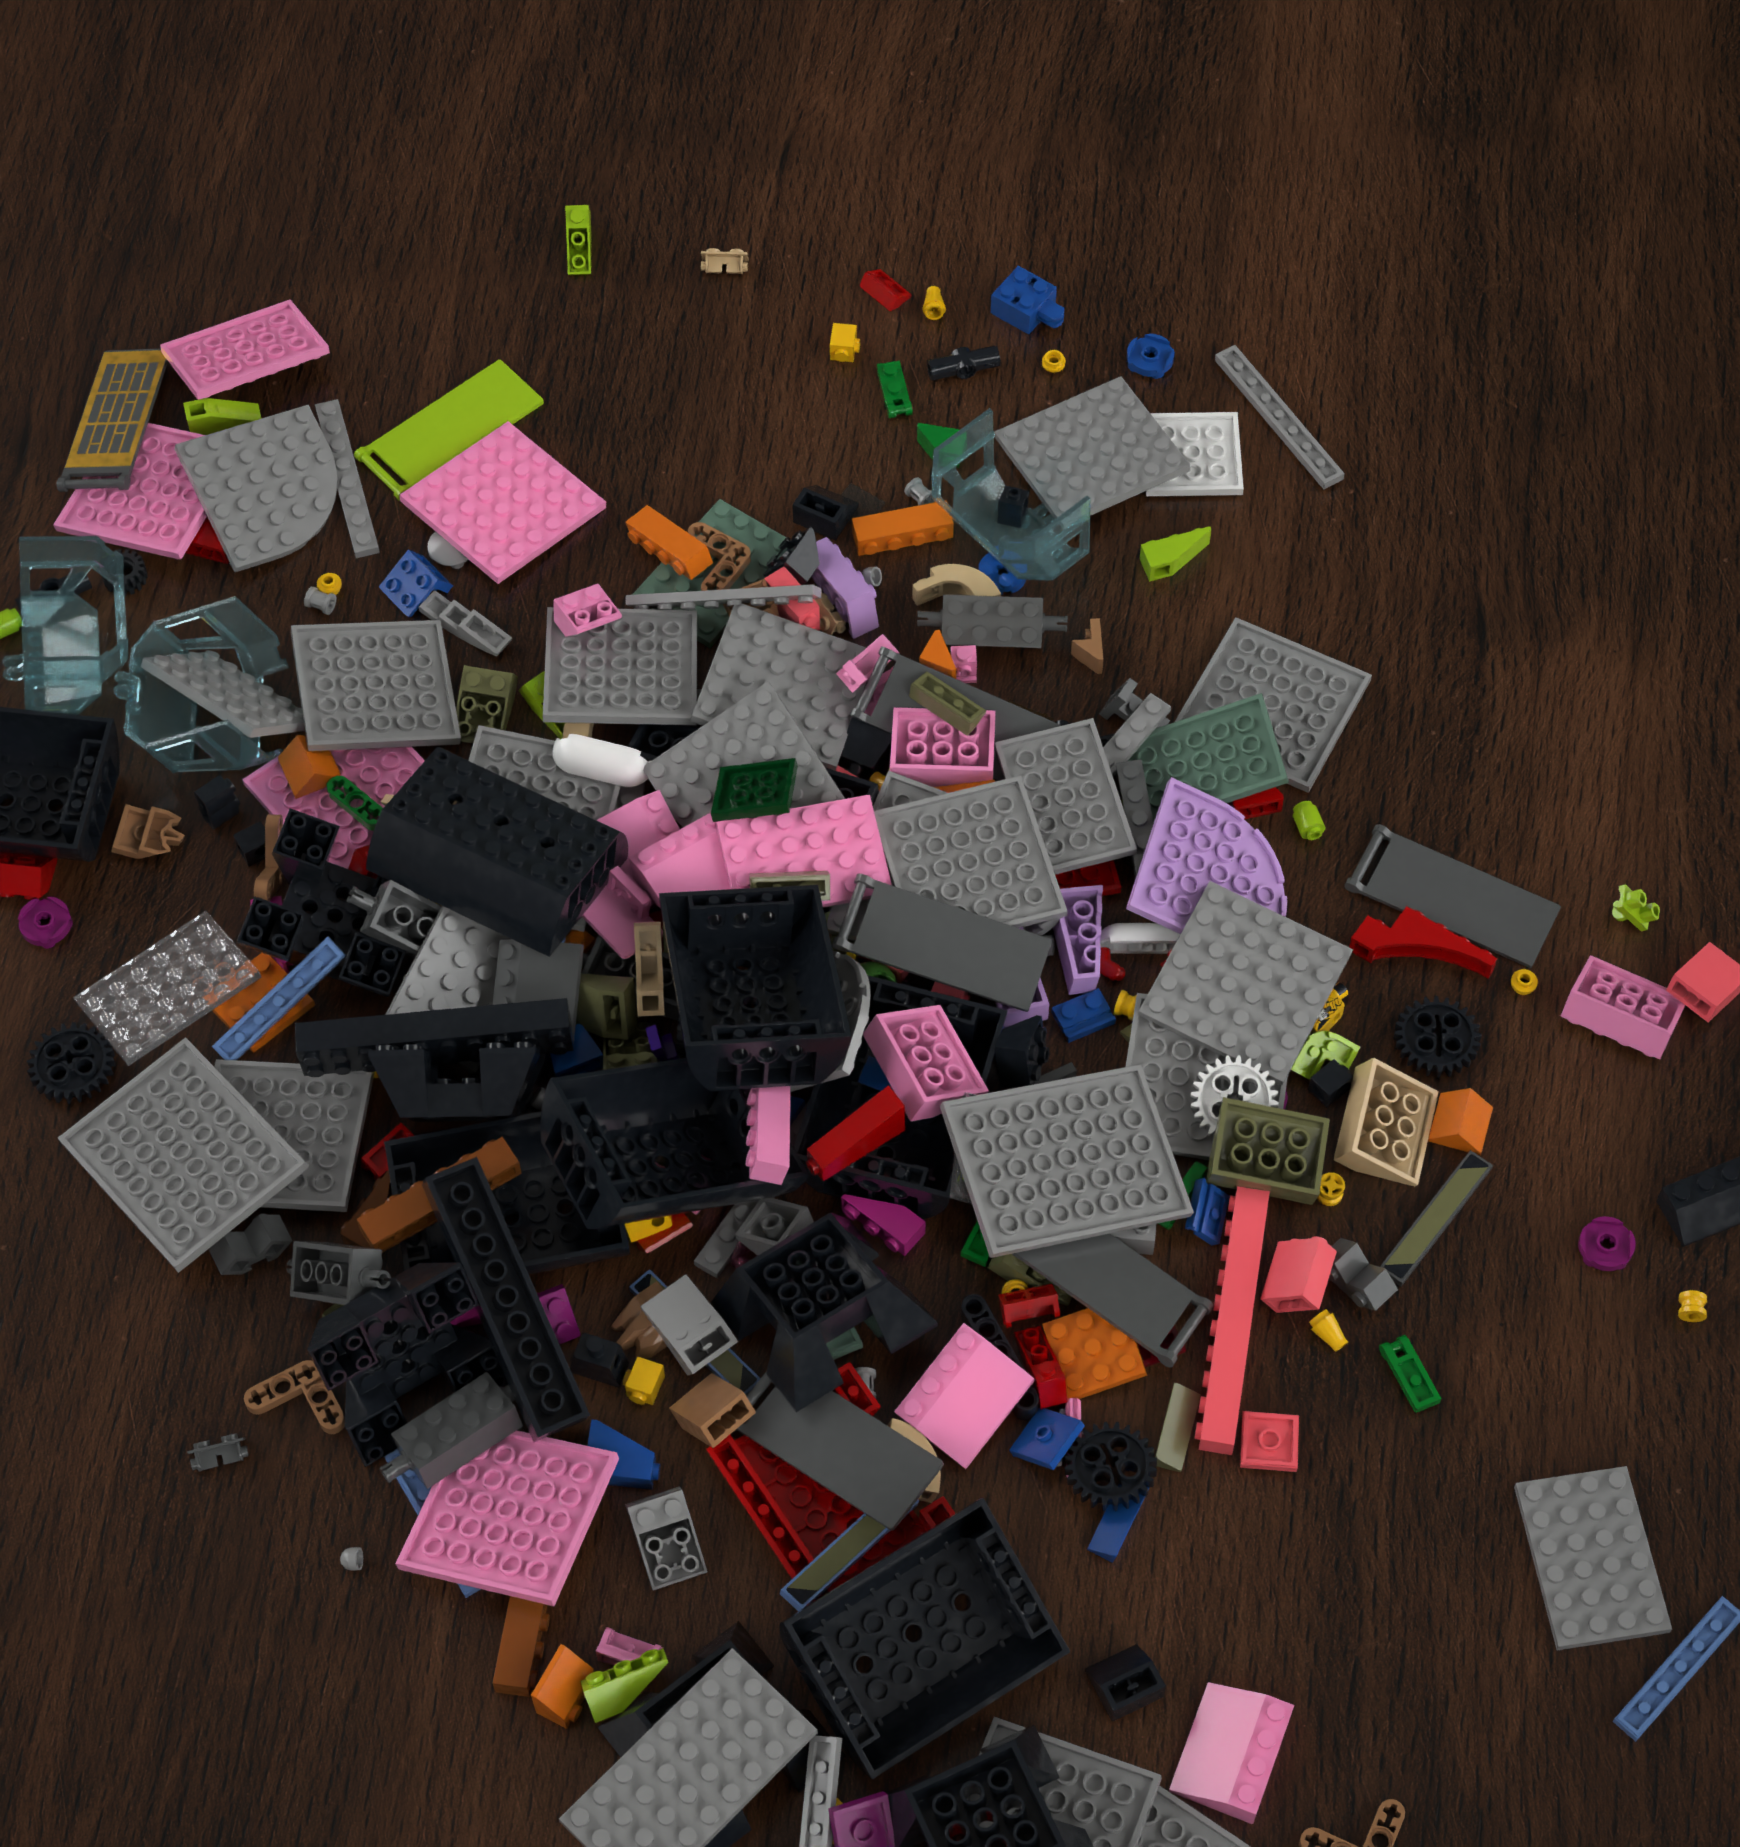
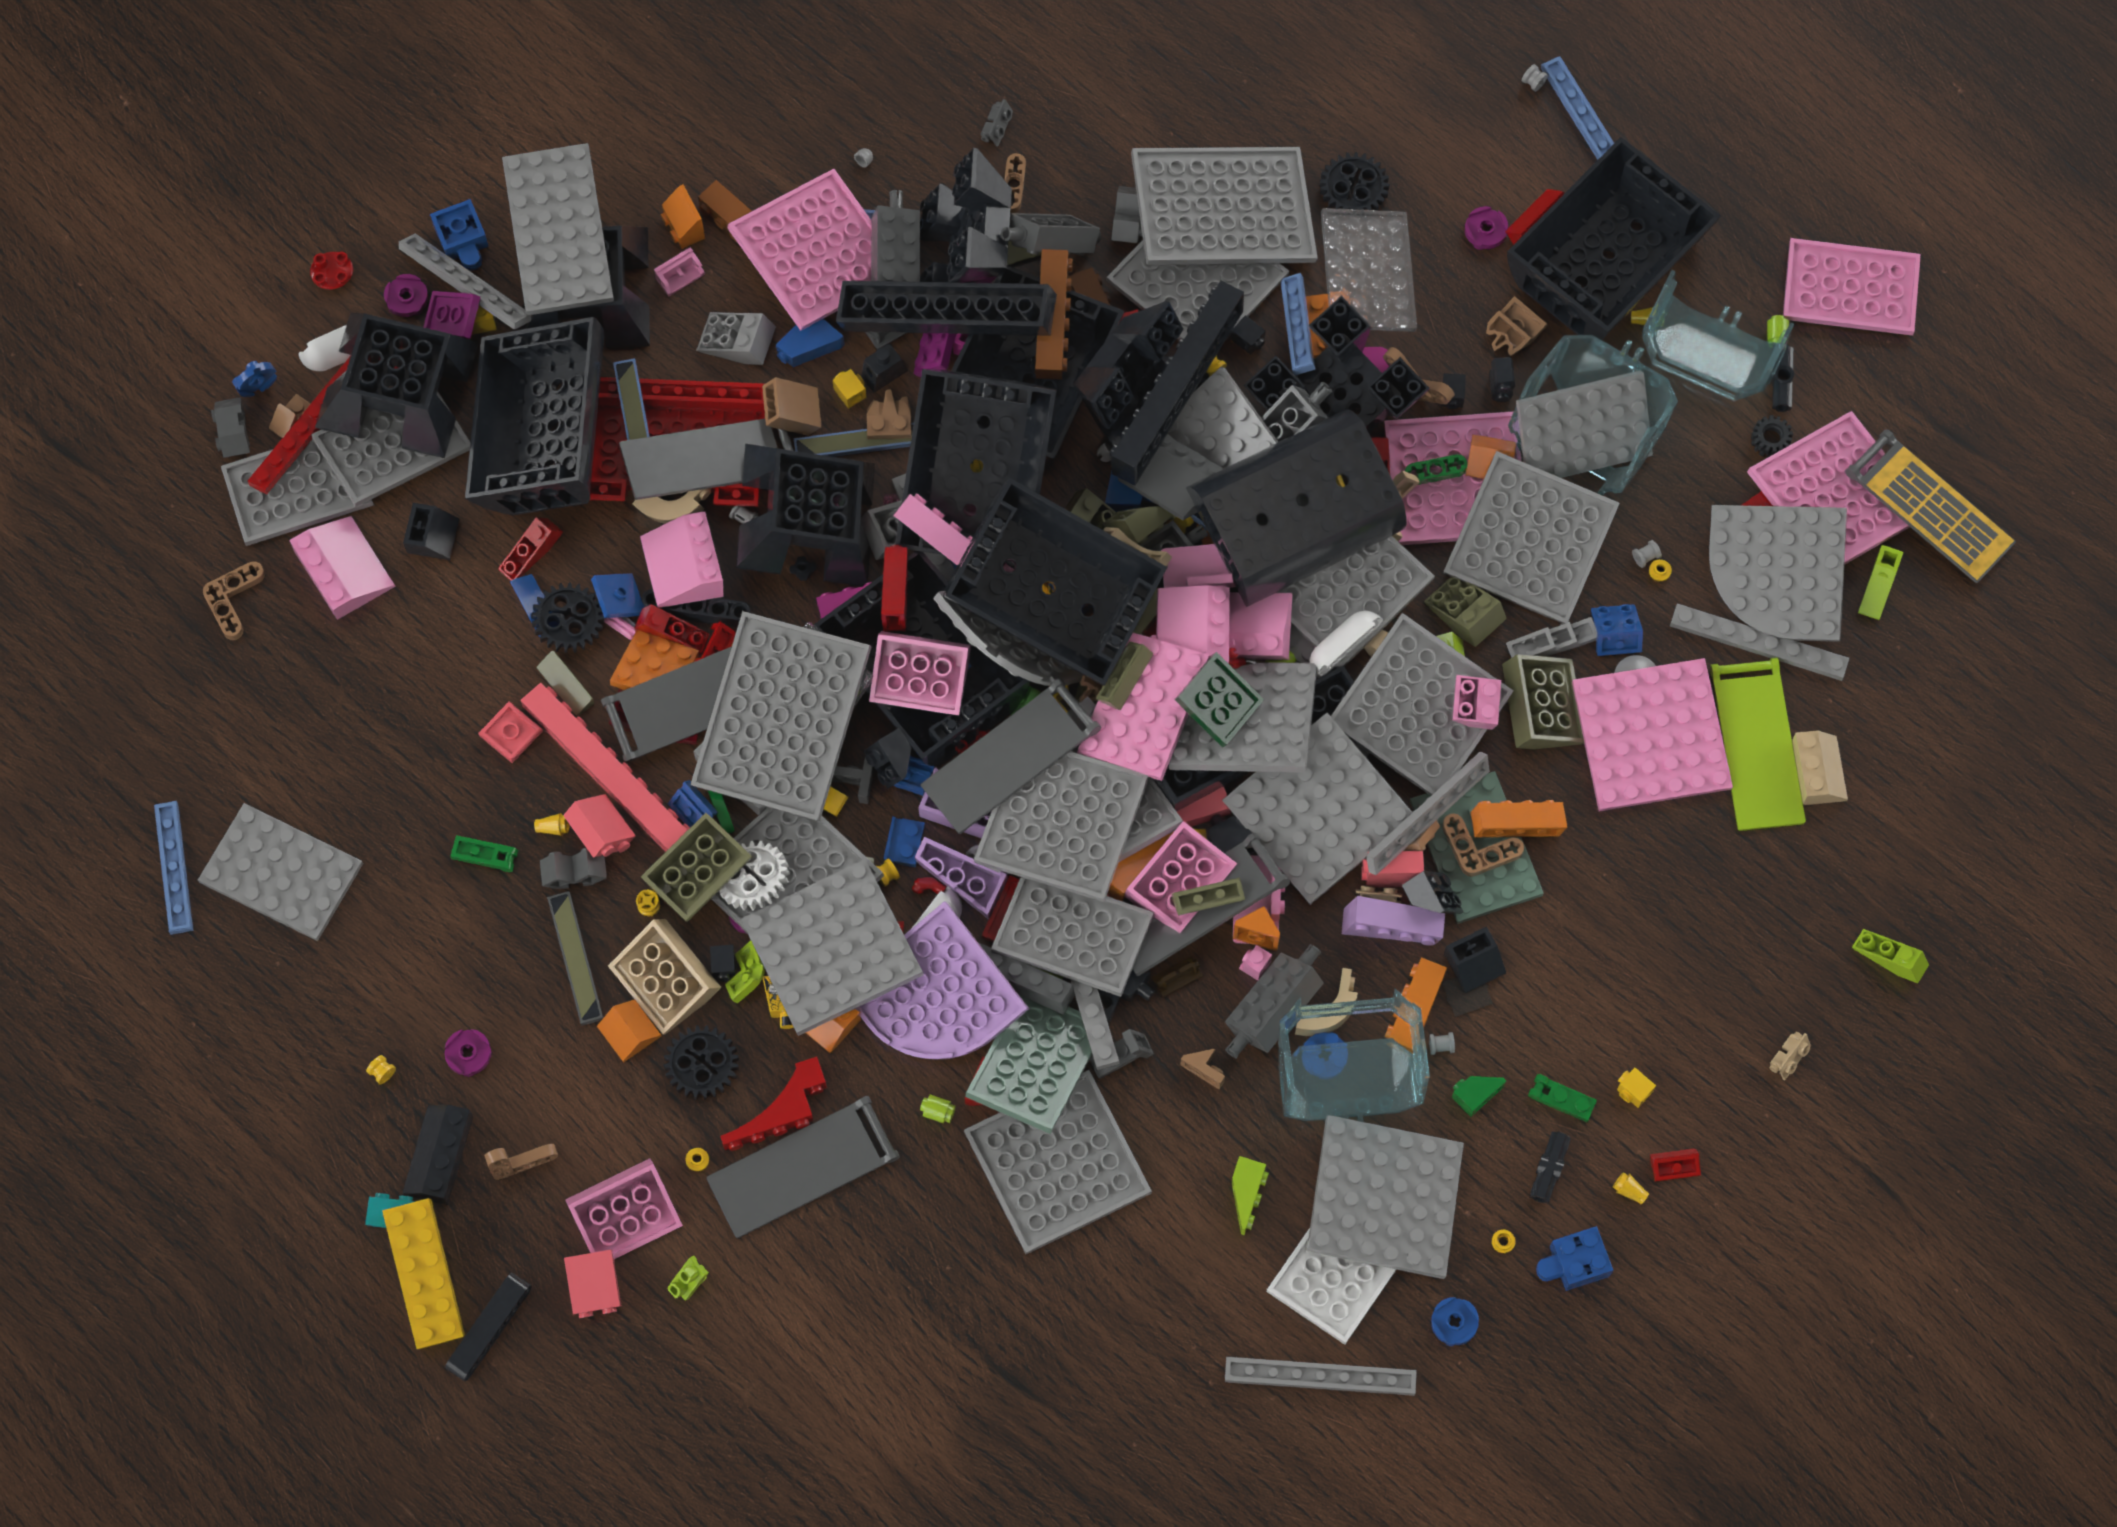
camera: 125 degrees right, 10 degrees up
(244, 349) = (1934, 630): bright pink plate -> none
(443, 372) = (1819, 768): none -> tan slope
(522, 599) = (1542, 702): none -> olive slope
(618, 1687) = (654, 243): lime slope -> none
(688, 1325) = (856, 425): light grey slope -> none
(858, 670) = (1290, 862): bright pink arch -> none
(872, 576) = (1385, 951): light grey hinge -> none
(1013, 506) = (1368, 1090): black brick -> none
(1063, 1568) = (530, 548): none -> red slope
(1677, 1128) = (503, 1166): none -> medium nougat beam

